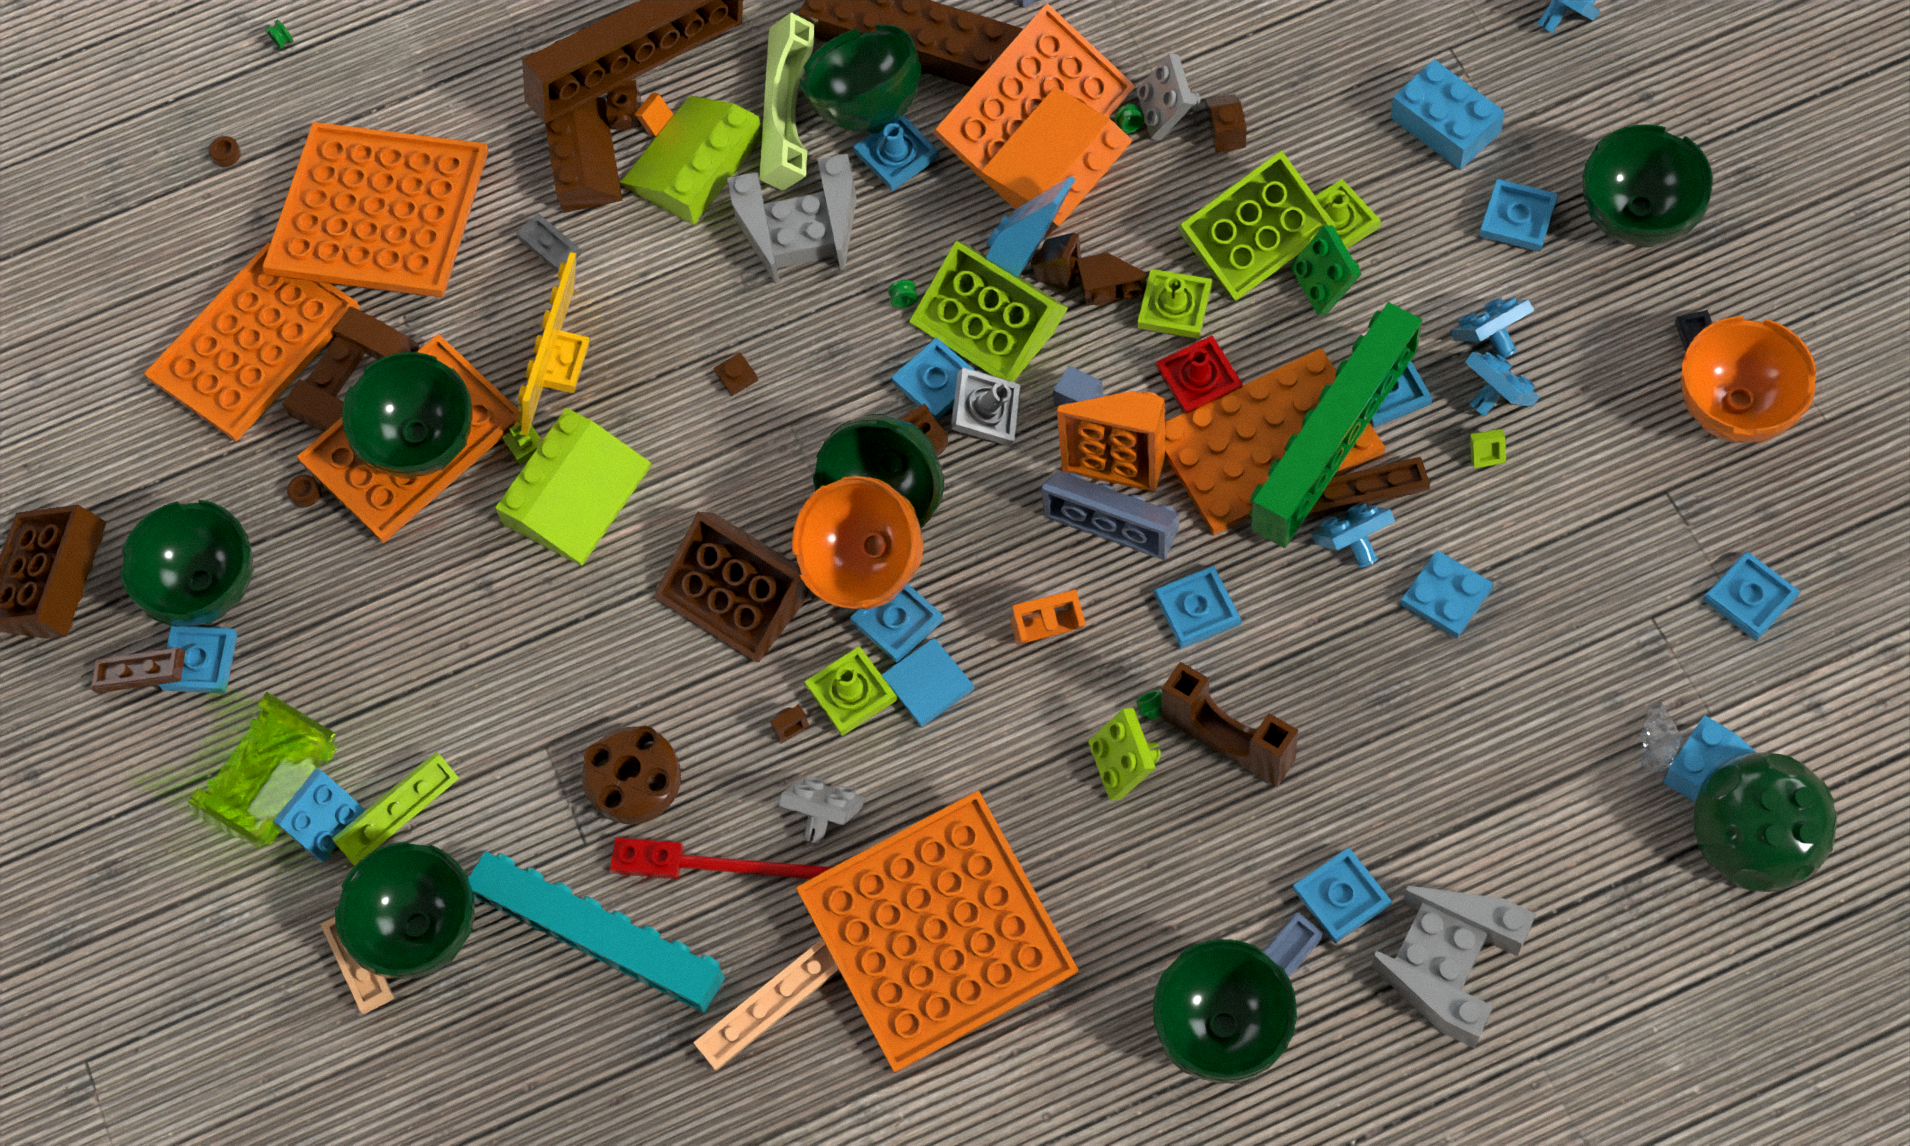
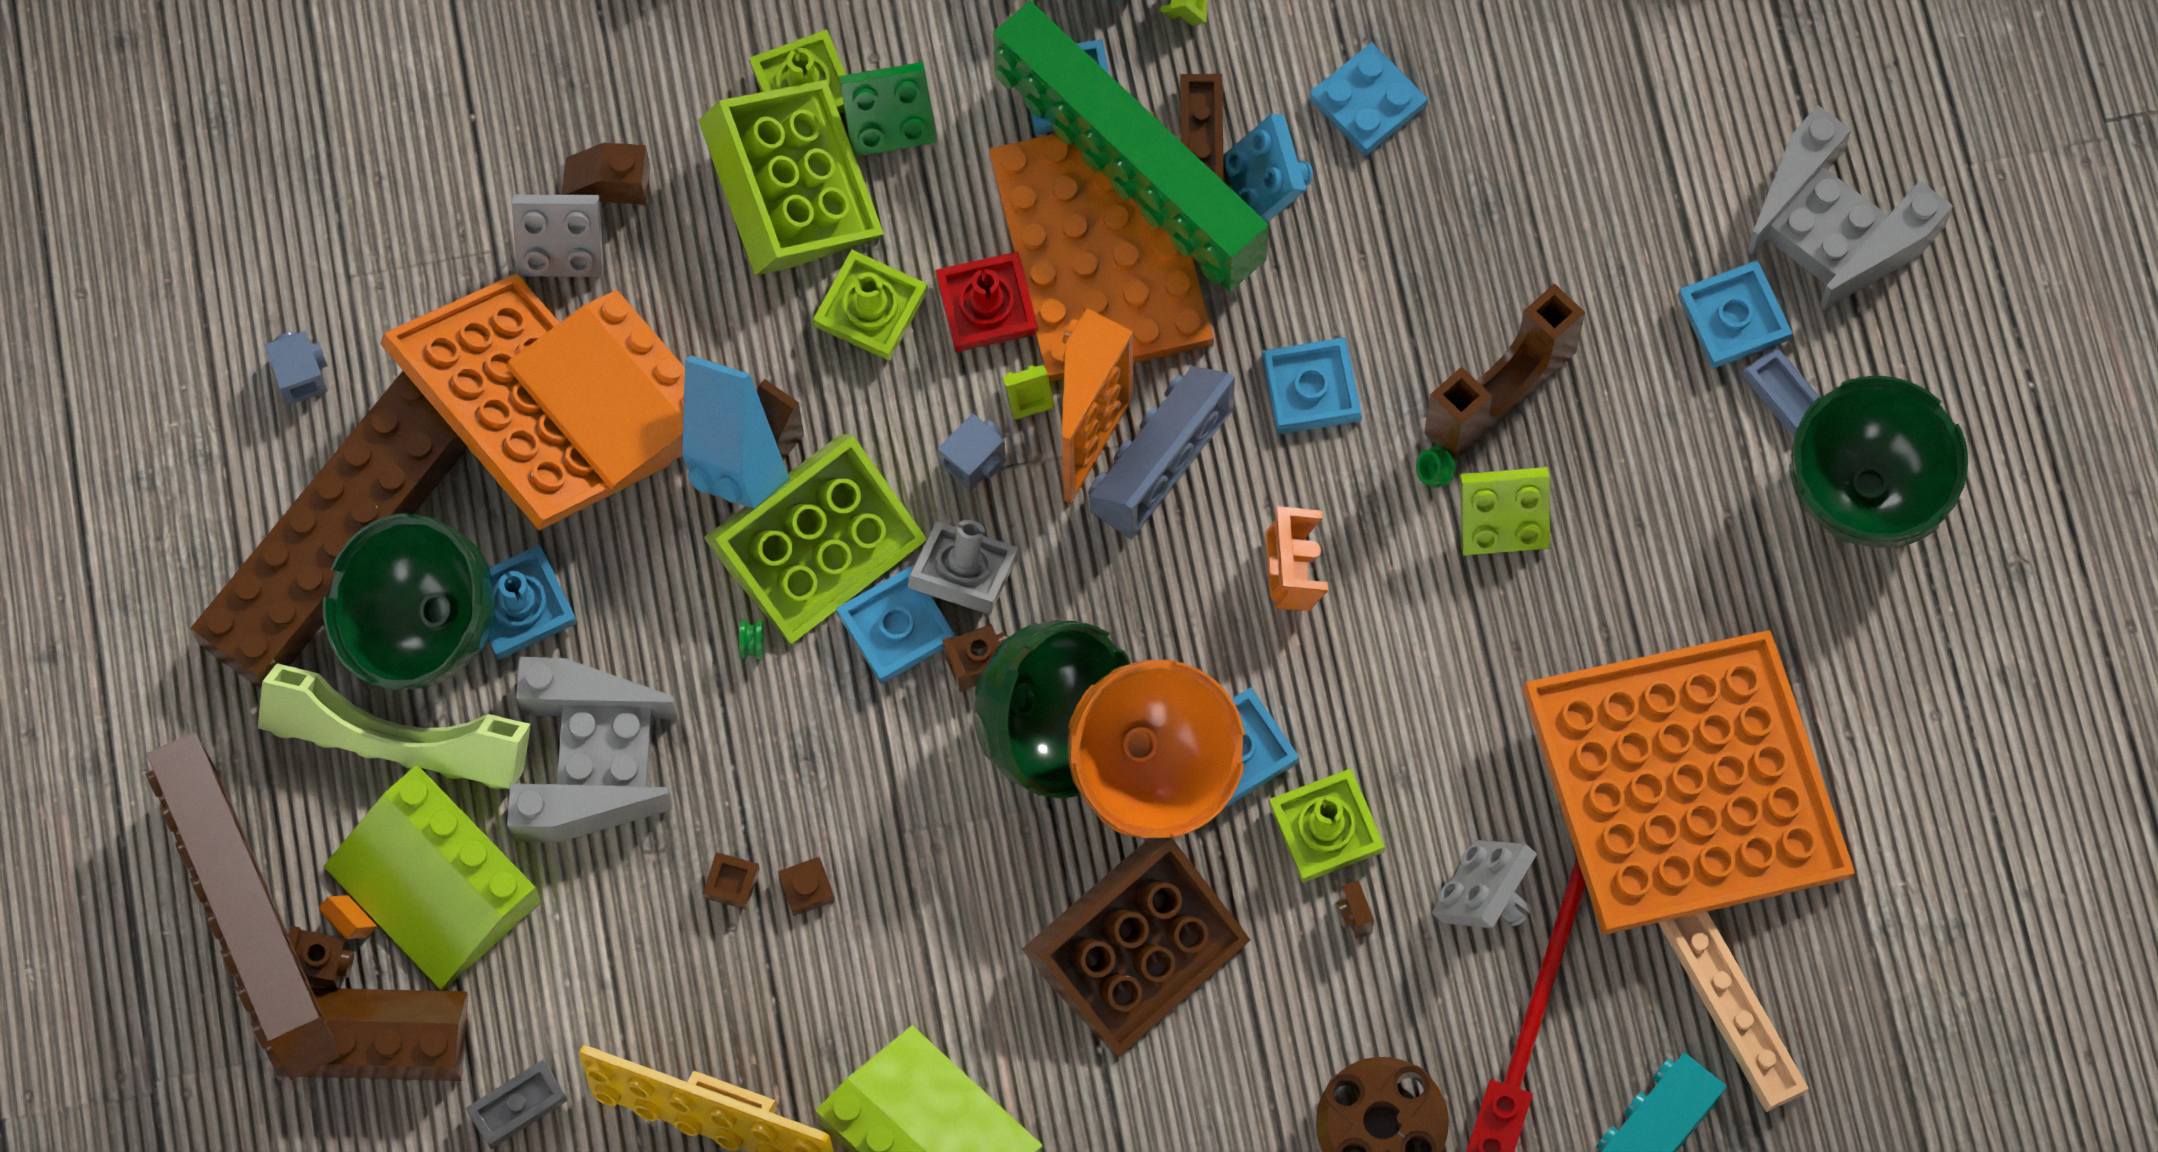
camera: 85 degrees left, 5 degrees up
(727, 326) = (731, 880): none -> reddish brown plate
(928, 682) = (1334, 729): dark azure tile -> none
(1109, 279) = (809, 373): reddish brown slope -> none
(1129, 118) = (563, 294): green plate -> none

